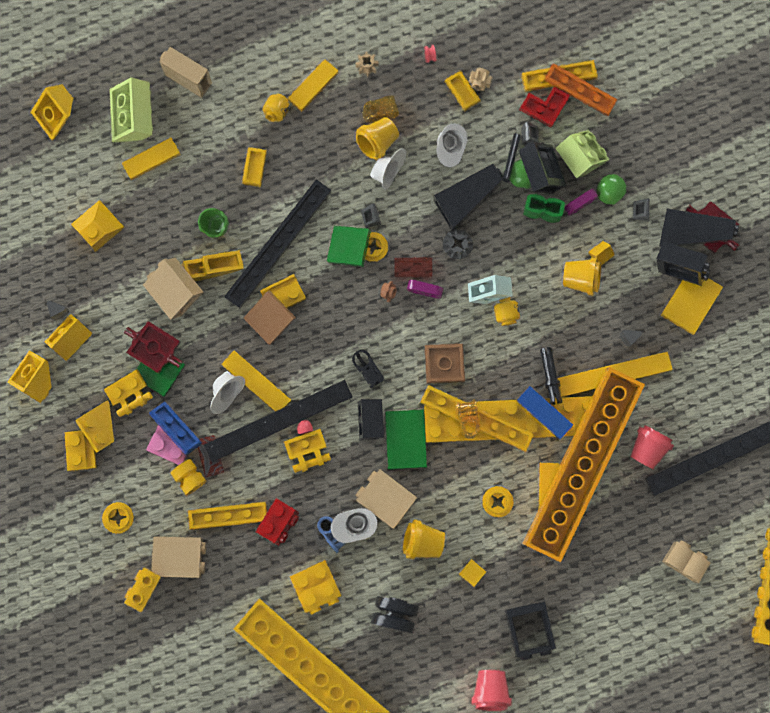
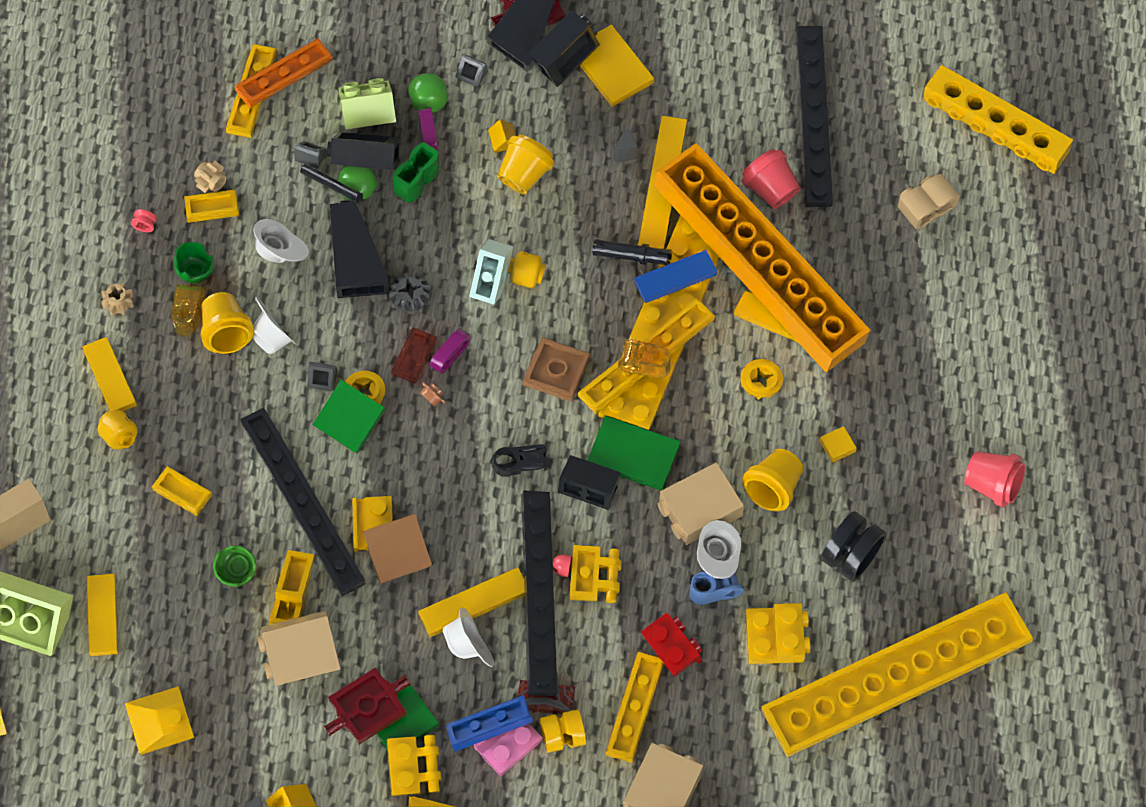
camera: 65 degrees left, 15 degrees down
(412, 98) = (193, 262): none -> green hair
(543, 650) = (944, 385): black window -> none
(548, 110) = (289, 123): red plate -> none

